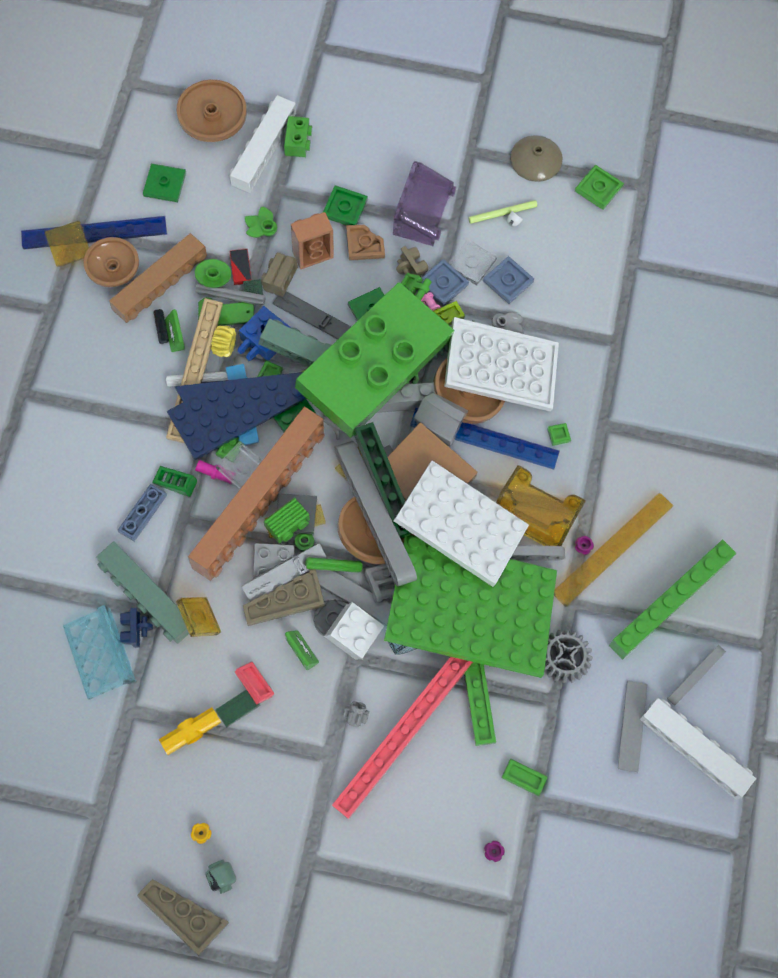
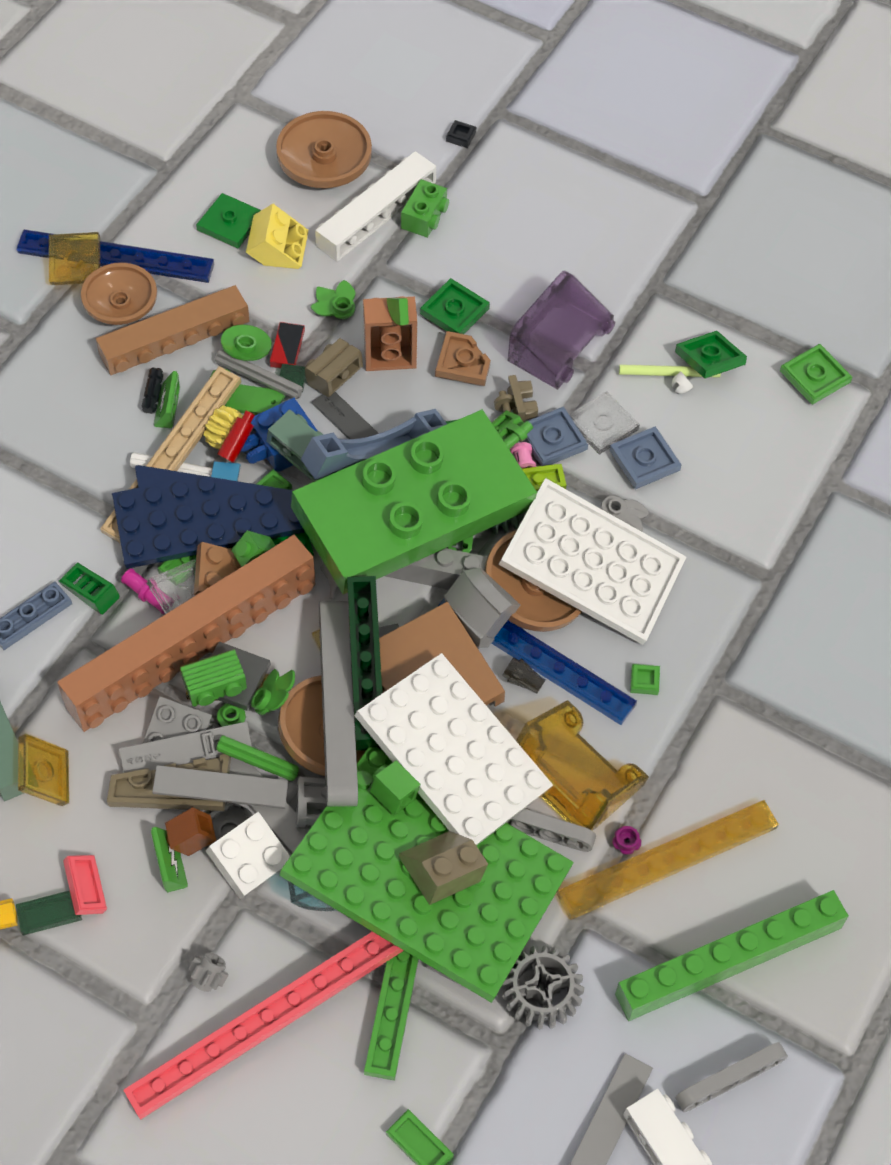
camera: 20 degrees right, 10 degrees down
(203, 188) = (277, 239): none -> light yellow slope
(236, 346) = (237, 437): none -> red cylinder
(258, 442) = (213, 565): none -> medium nougat plate
(278, 423) = (251, 546): none -> bright green brick
(300, 71) = (461, 134): none -> black tile
(309, 627) = (190, 831): none -> dark orange brick
(316, 342) = (330, 454): none -> sand blue arch
(318, 592) = (220, 787): none -> light grey piece
(319, 226) = (398, 310): none -> bright green tile
(328, 517) = (273, 692): none -> bright green plate
(434, 559) = (394, 787): none -> bright green brick
(481, 455) = (522, 675): none -> clear smoke cone
(483, 600) = (444, 865): none -> dark tan slope
(527, 193) = (710, 354): none -> green plate
(536, 165) = (741, 316): dark tan dish -> none

